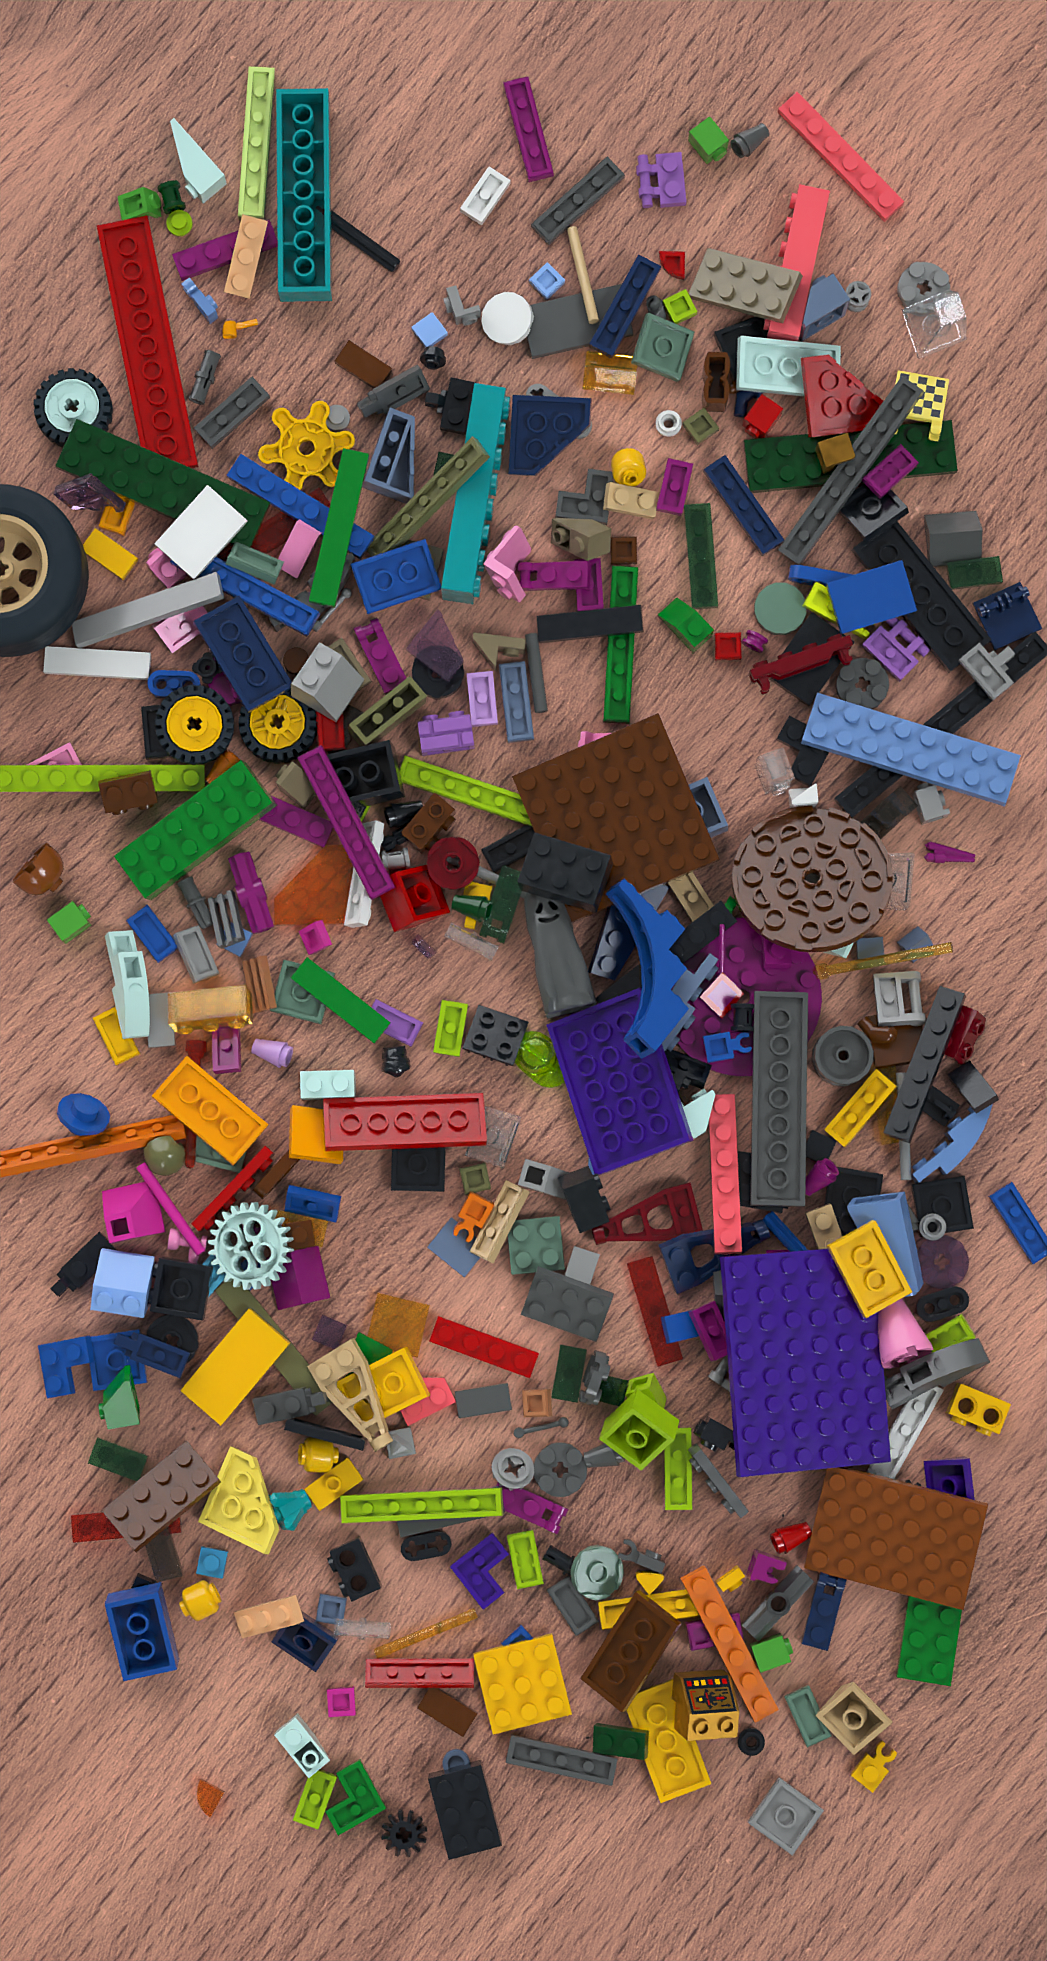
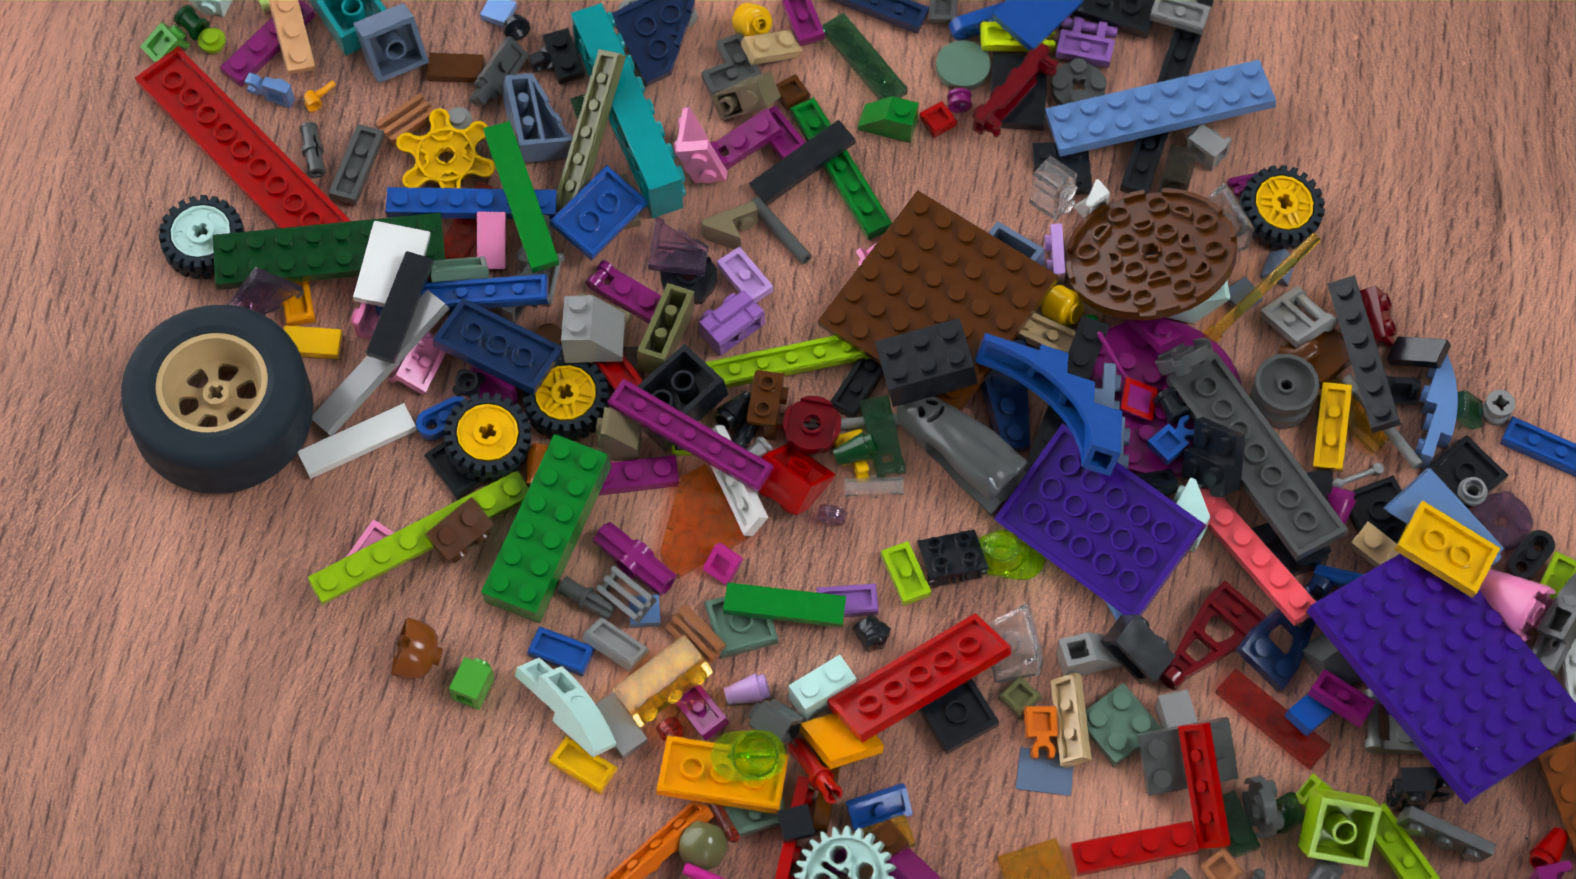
camera: 30 degrees left, 20 degrees down
(83, 1114) = (597, 853): blue piece -> none
(185, 575) = (400, 307): none -> black tile
(230, 1114) = (748, 755): none -> clear neon green piece
(238, 1183) = (796, 823): none -> black tile
(274, 1093) = (776, 718): none -> dark grey brick
(278, 1158) = (819, 776): none -> red pin
(296, 391) = (403, 116): none -> nougat tile
(317, 318) = (391, 42): none -> sand blue brick
(516, 702) = (777, 264): sand blue tile -> none
(560, 1337) = (1204, 785): none -> red plate
(717, 877) = (1062, 306): none -> yellow head
(735, 837) = (1054, 244): none -> lavender plate
(743, 1084) = (1215, 457): none -> black plate
(777, 986) = (1182, 357): none -> dark grey plate
(874, 1160) = (1376, 469): none -> light grey hinge
(931, 895) = (1282, 206): none -> wheel
(980, 1157) = (1469, 410): none -> clear green plate
(1002, 1172) = (1493, 413): none -> light grey wheel

